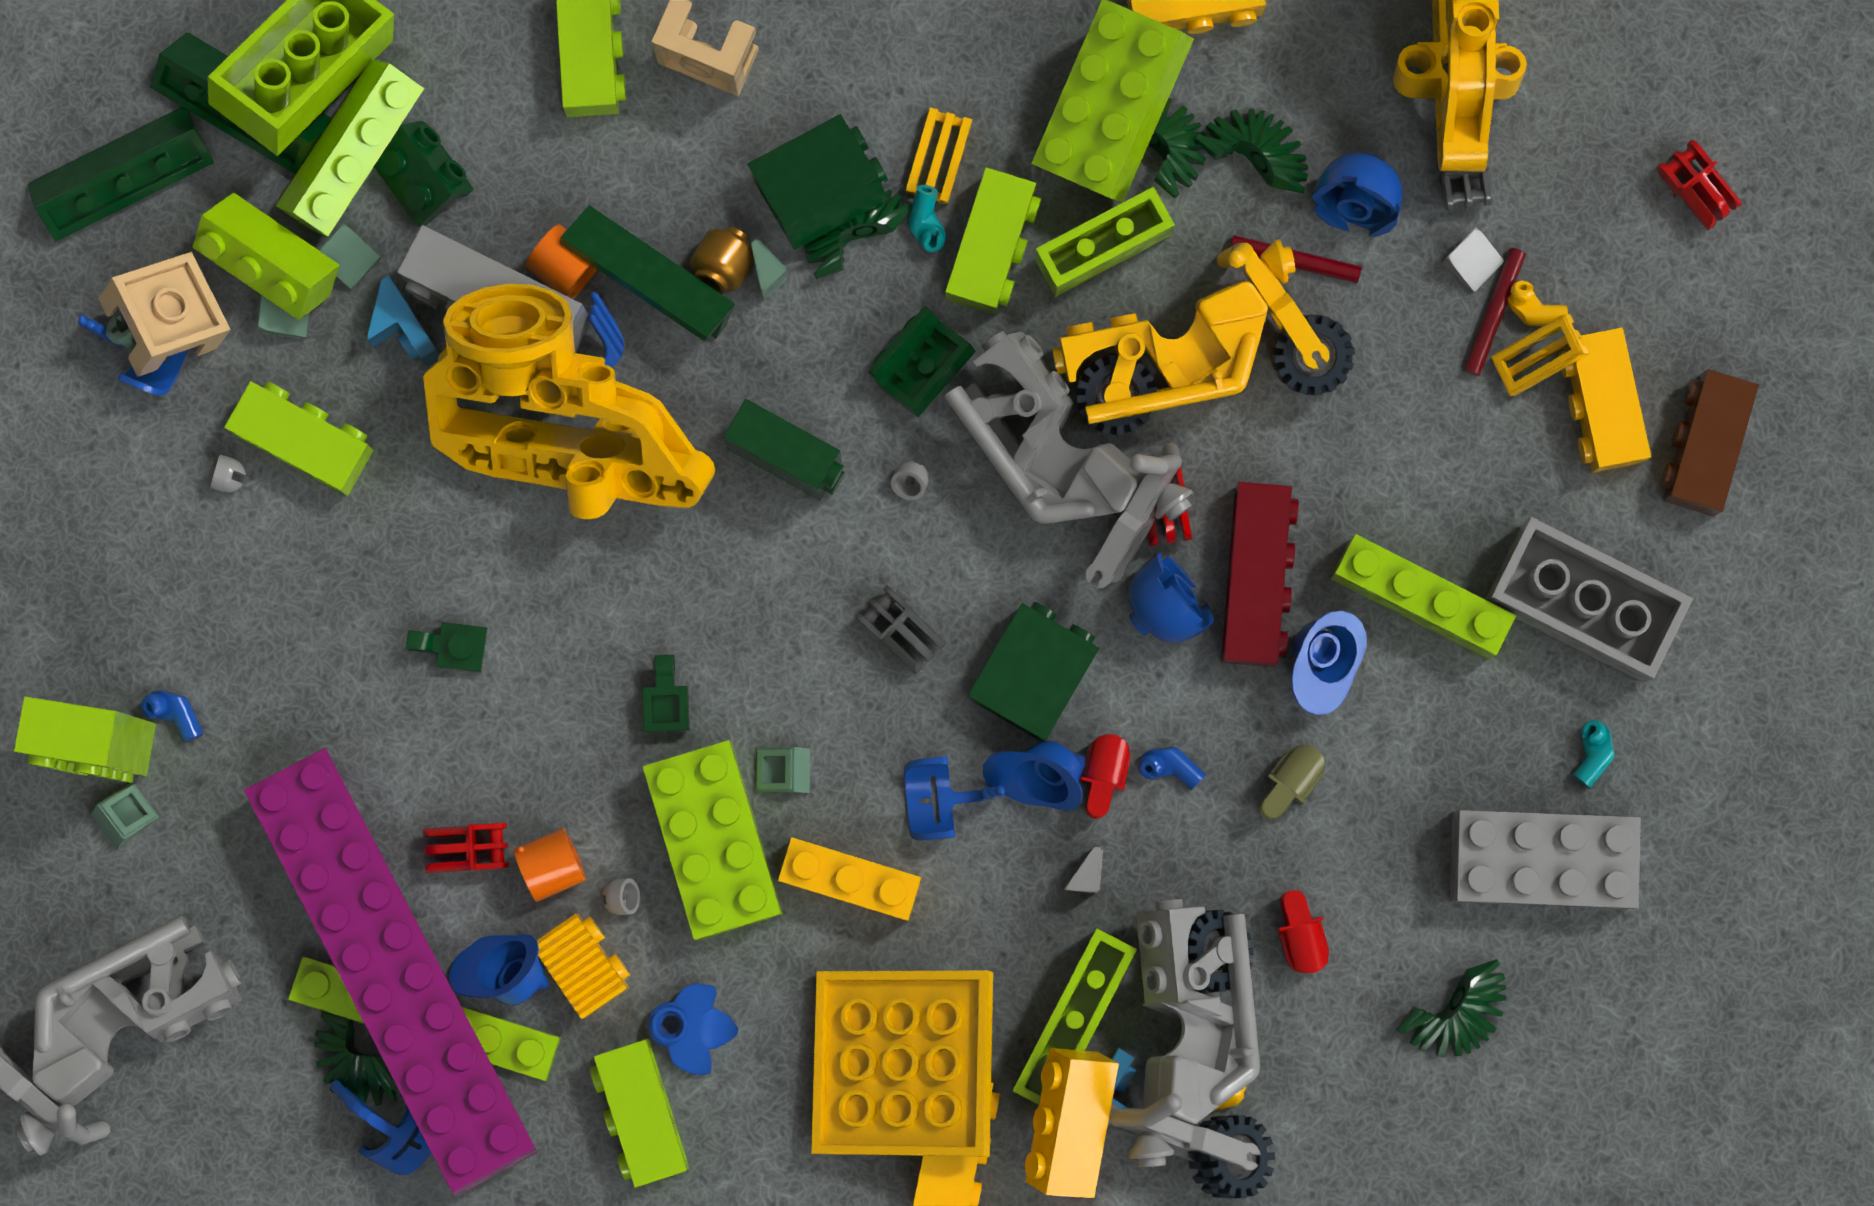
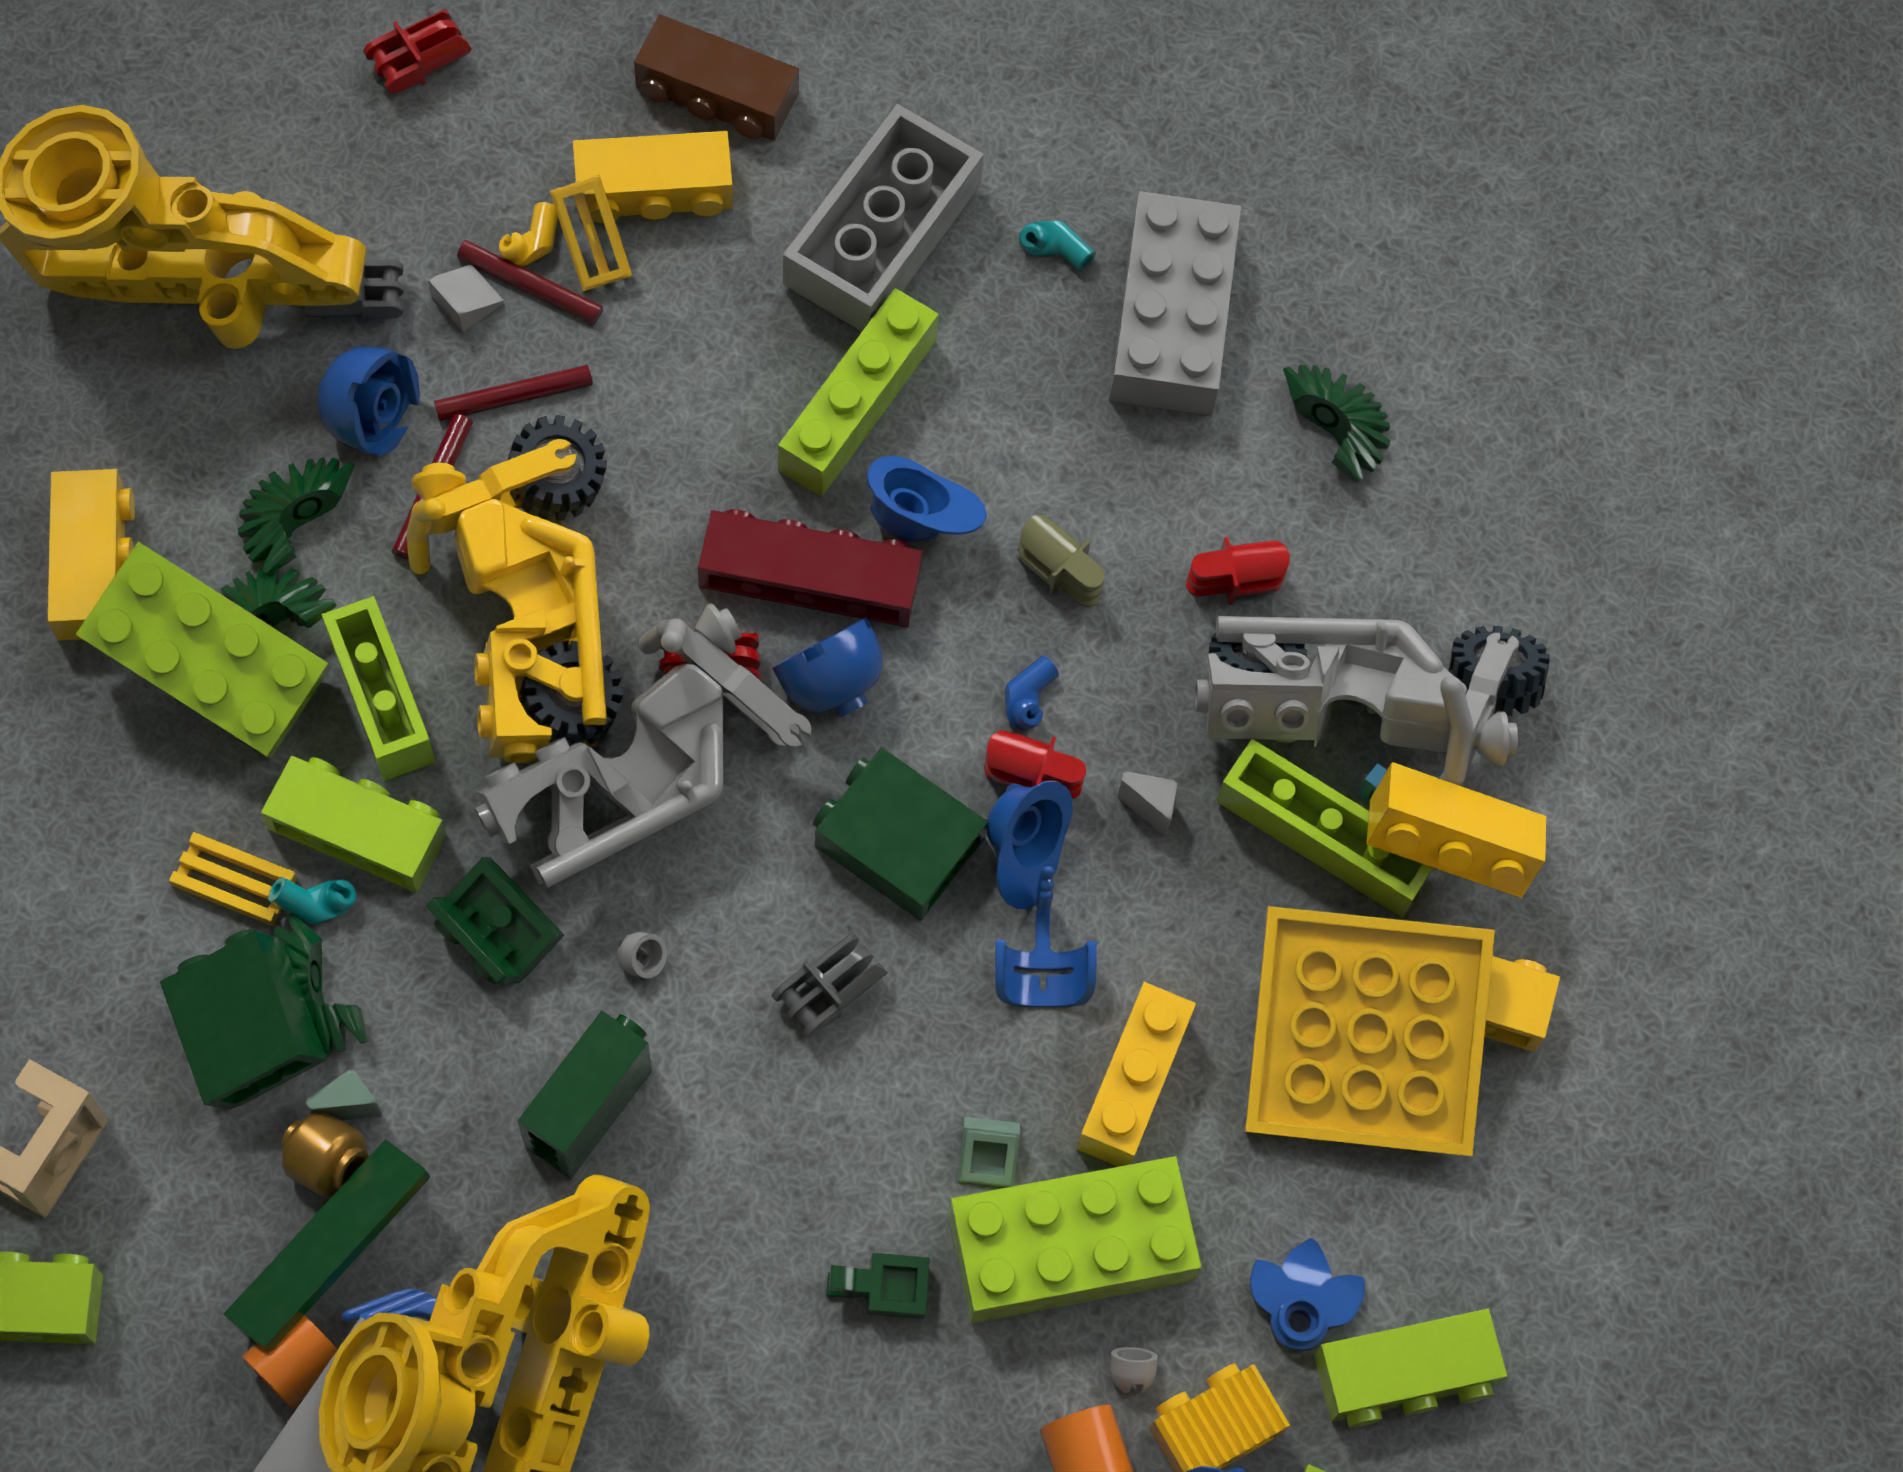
camera: 90 degrees left, 15 degrees down
(1389, 312) = (513, 392): none -> dark red bar

